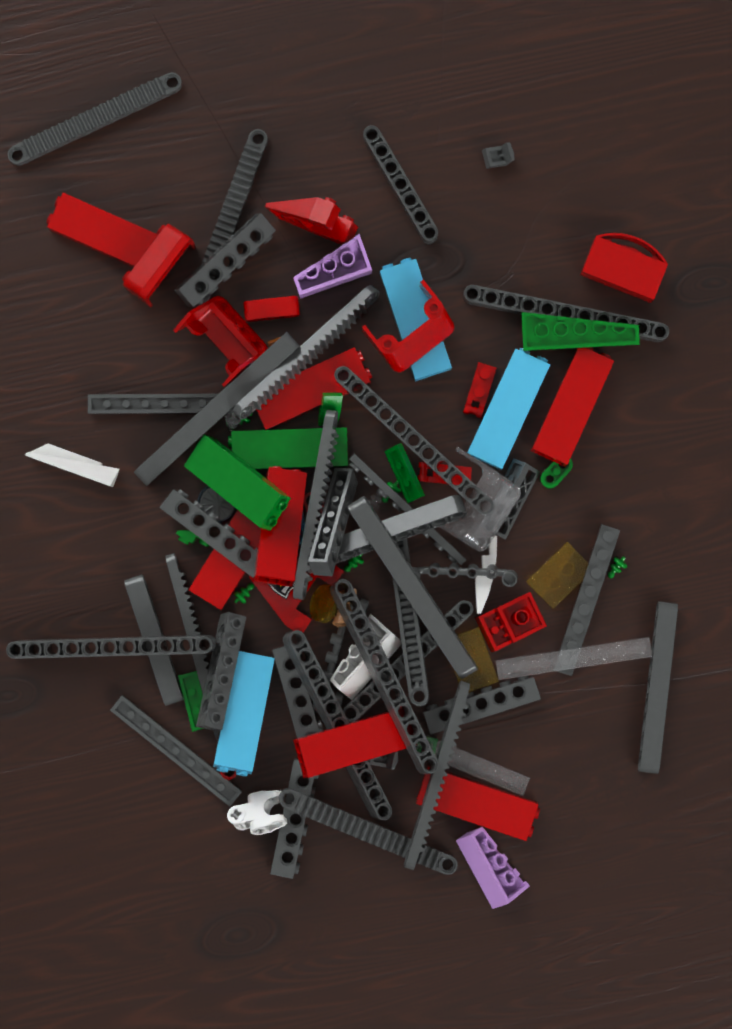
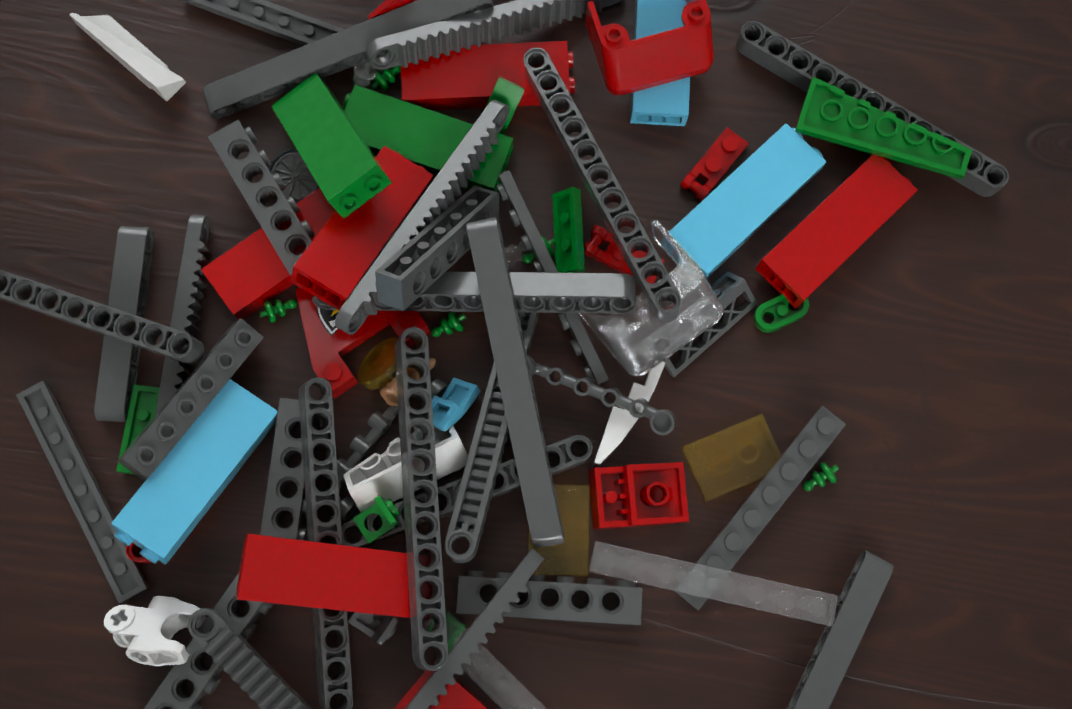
camera: 15 degrees right, 10 degrees down
(187, 536) = (235, 202): green slope -> none
(367, 693) = (386, 511): none -> green bracket
(378, 610) = (453, 404): none -> medium azure slope
(625, 266) = (972, 77): red piece -> none

